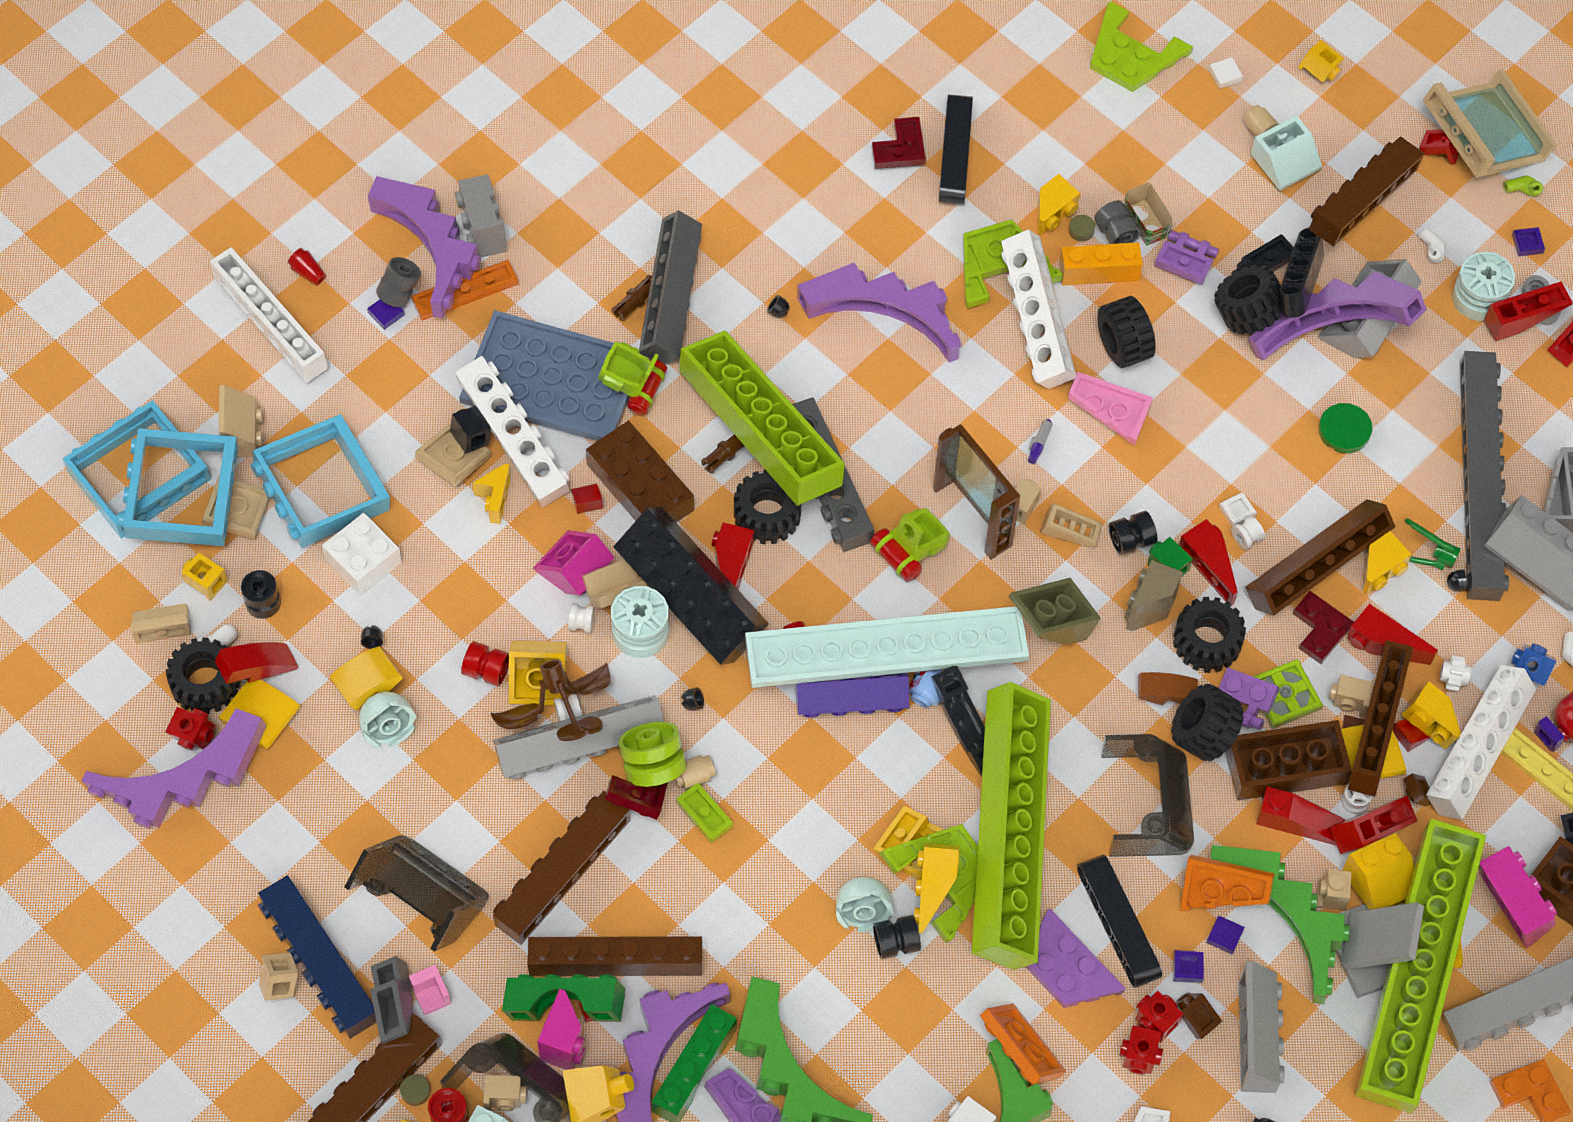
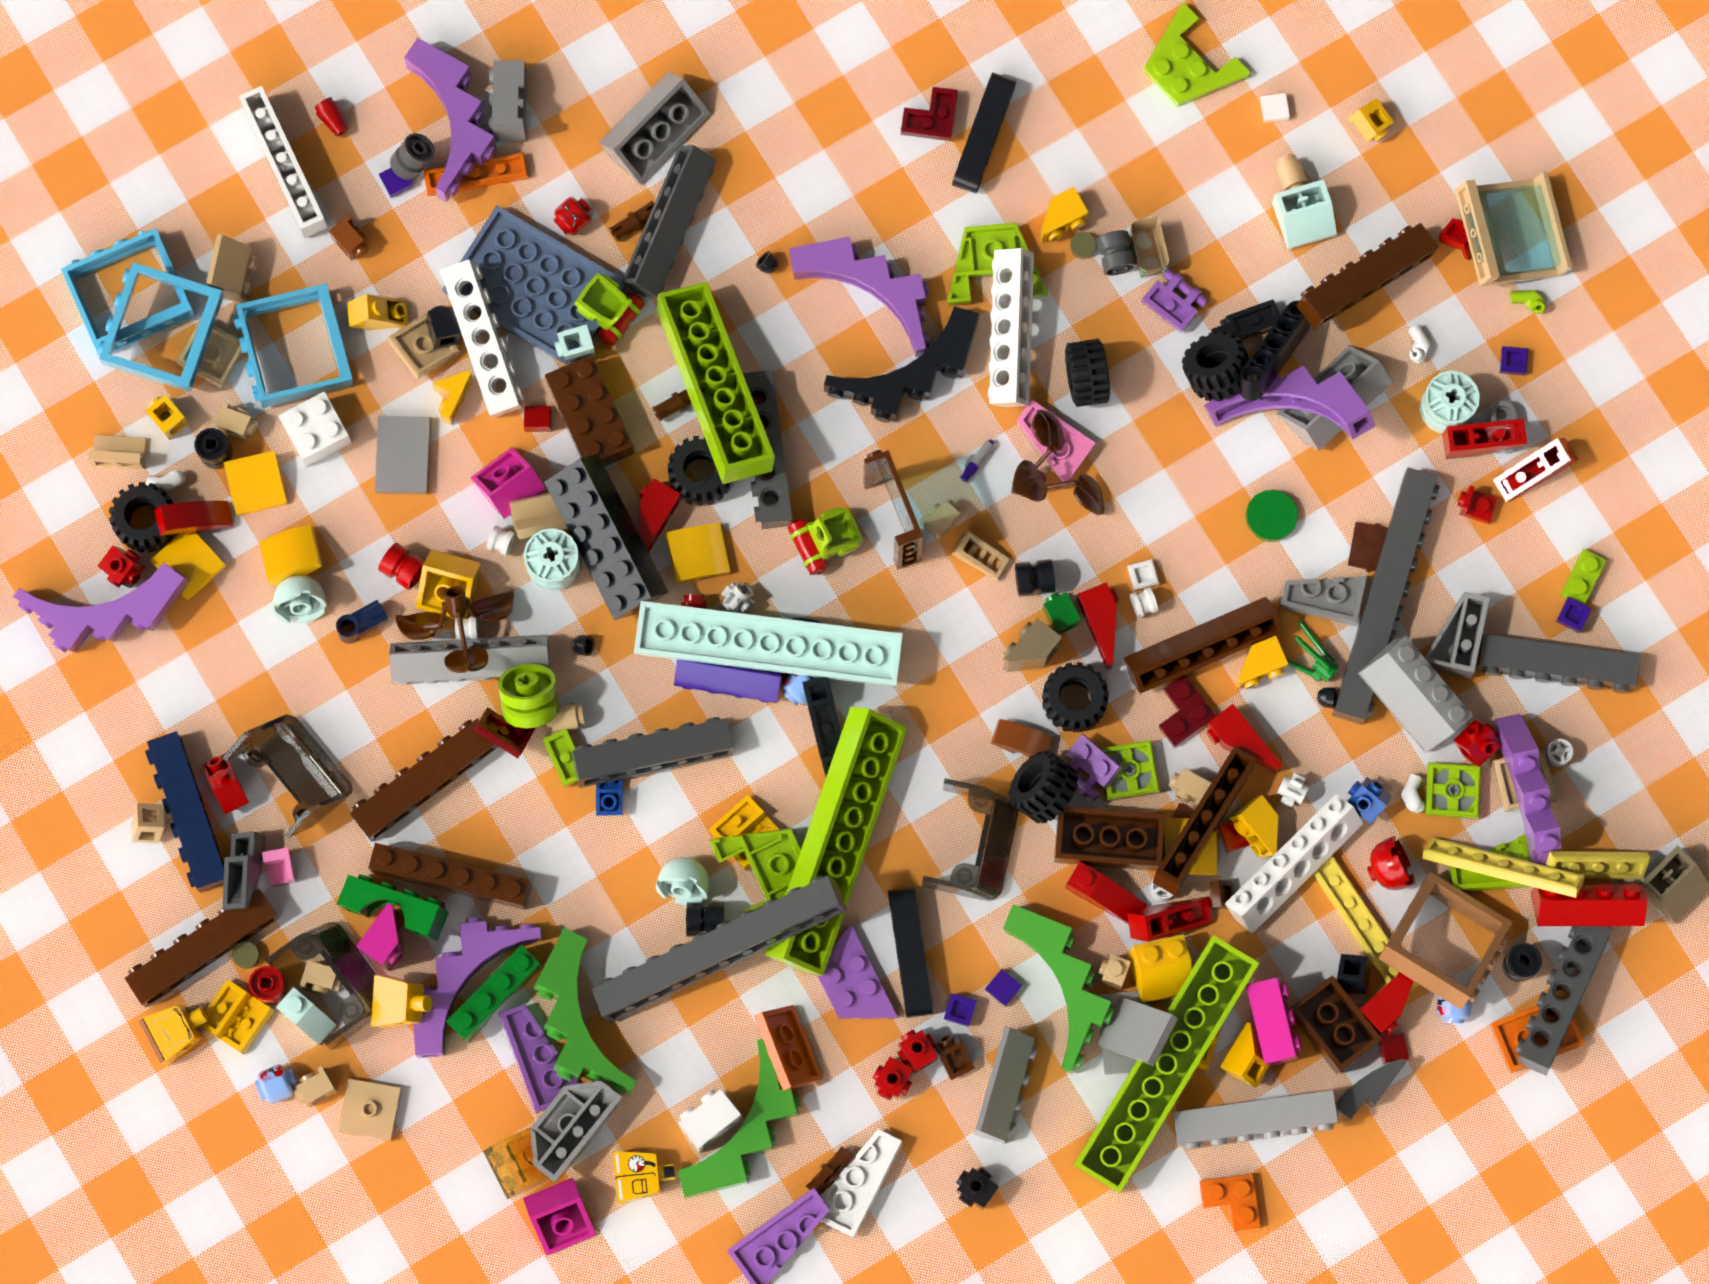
camera: 15 degrees right, 15 degrees up
(279, 564) = (235, 422): none -> tan brick
(312, 619) = (255, 483): none -> yellow slope
(351, 918) = (225, 784): none -> red slope
(352, 372) = (349, 239): none -> dark orange brick
(367, 637) = (306, 513): black hinge -> none
(397, 433) = (377, 313): none -> yellow slope
(455, 726) = (363, 620): none -> dark blue piece
(457, 561) = (402, 455): none -> light grey tile
(572, 304) = (572, 215): none -> red head
(608, 414) = (578, 335): none -> light aqua brick
(632, 209) = (655, 127): none -> light grey slope
(758, 832) = (609, 798): none -> blue slope
(785, 586) = (697, 552): none -> yellow slope
(795, 783) = (652, 752): none -> dark grey brick
(839, 613) = (737, 597): none -> white gear
(923, 954) = (719, 948): none -> dark grey brick
(939, 873) = (755, 873): yellow slope -> none
(956, 379) = (916, 379): none -> black arch
(1057, 611) = (935, 644): olive slope -> none
(1101, 263) = (1087, 290): light orange brick -> none
(1107, 440) = (1031, 482): none -> reddish brown plant
(1220, 883) = (1010, 944): orange wing -> none
(1428, 490) = (1326, 599): none -> light grey wing
(1446, 436) = (1366, 546): none -> copper piece
(1499, 943) = (1245, 1058): none -> yellow slope
(1540, 375) = (1476, 505): none -> red bracket
(1549, 734) = (1360, 870): dark purple tile -> none

